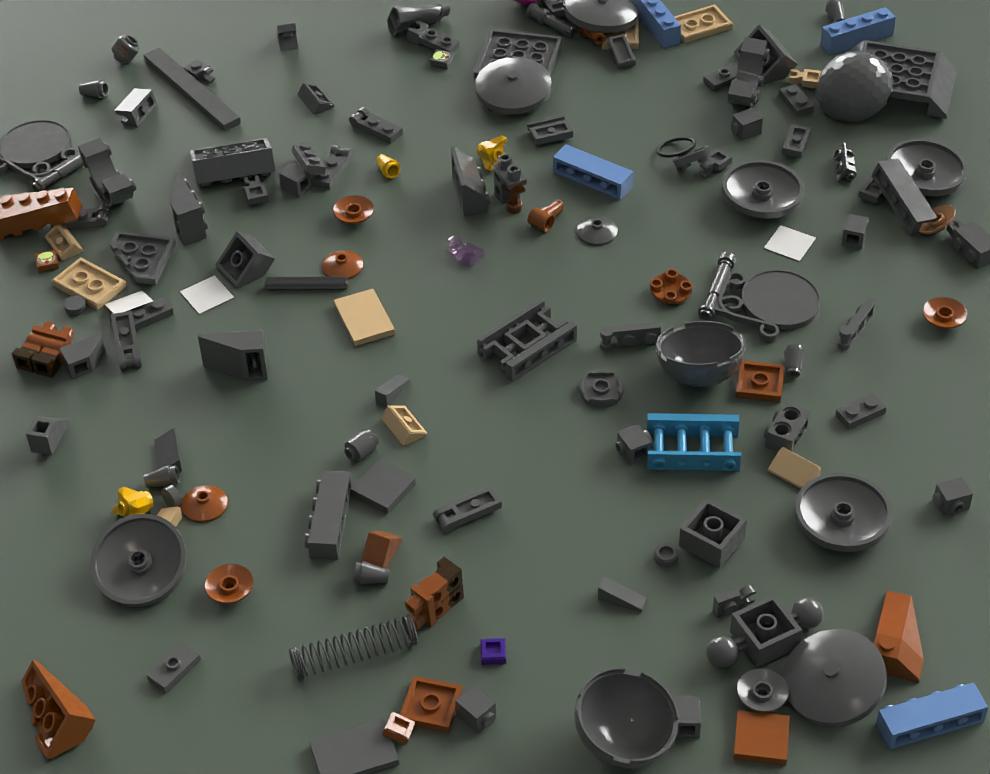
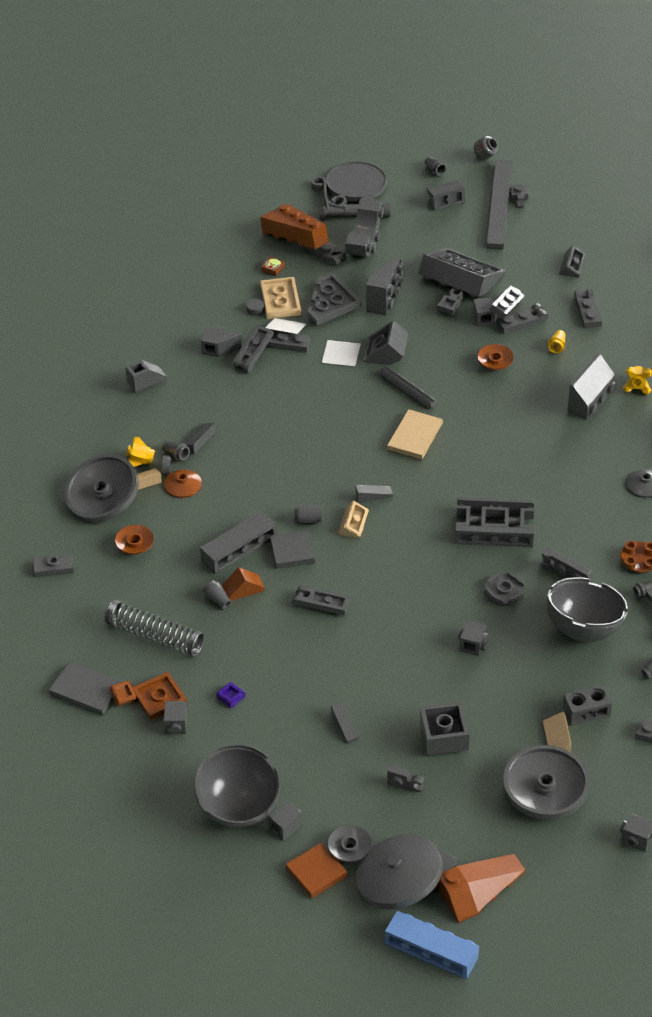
camera: 45 degrees right, 0 degrees up
(43, 349) = (196, 322): hips -> none
(63, 242) = (297, 260): tan slope -> none
(236, 354) = (304, 403): dark grey slope -> none
(287, 36) = (606, 205): dark grey slope -> none
(342, 264) = (446, 390): dark orange dish -> none
(435, 594) = (231, 633): dark orange hips -> none
(468, 253) = (534, 438): clear purple plate -> none
(509, 183) = (612, 407): dark grey hips -> none
(544, 218) = (615, 448): dark orange pin -> none
(666, 555) = (405, 721): dark grey tile -> none
(693, 425) = (517, 649): dark azure fence -> none
(760, 381) = (616, 662): dark orange tile -> none
(765, 631) = (395, 810): dark grey brick -> none

